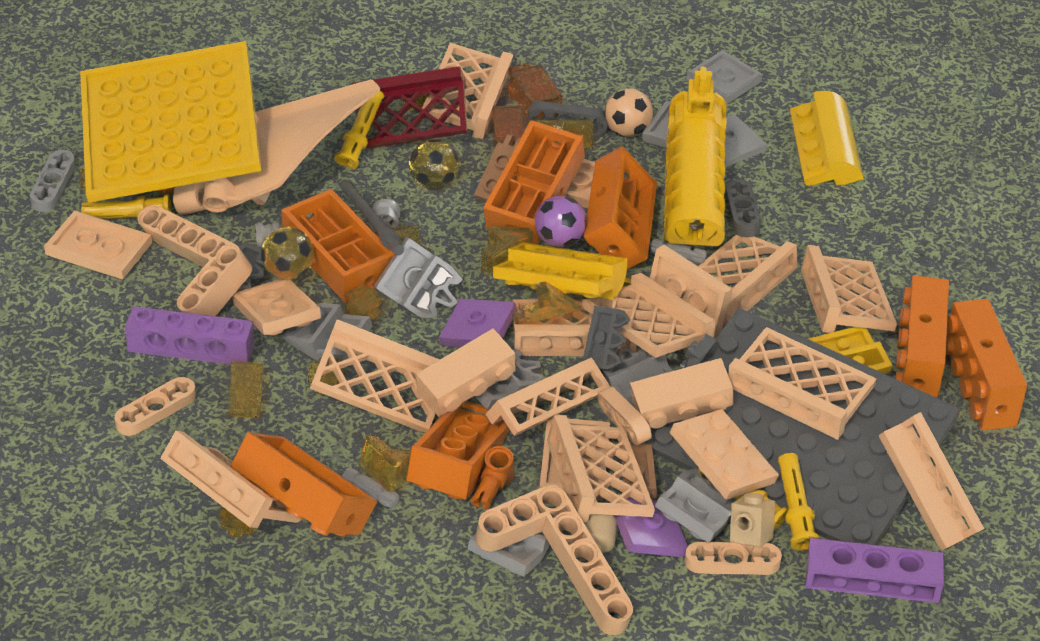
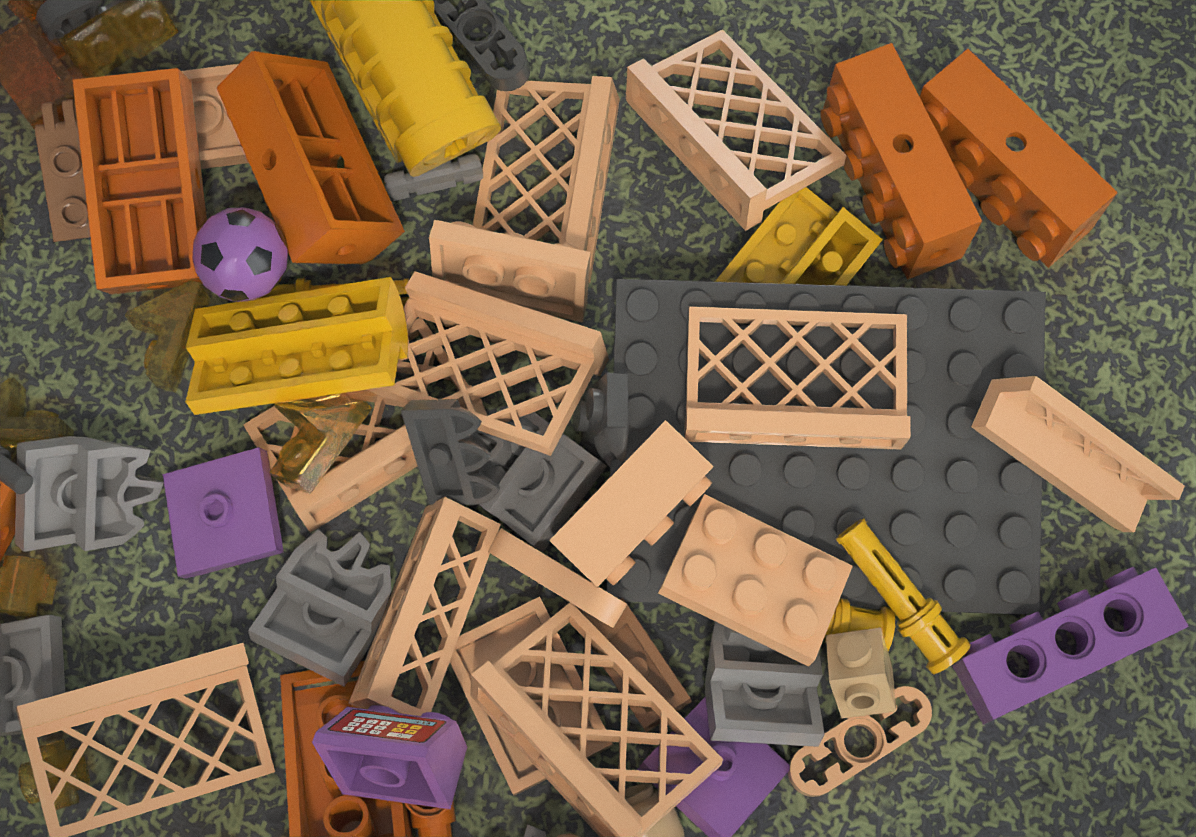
camera: 30 degrees left, 30 degrees up
(466, 372) = (281, 665): light nougat brick -> none
(494, 421) = (393, 755): none -> medium lavender slope

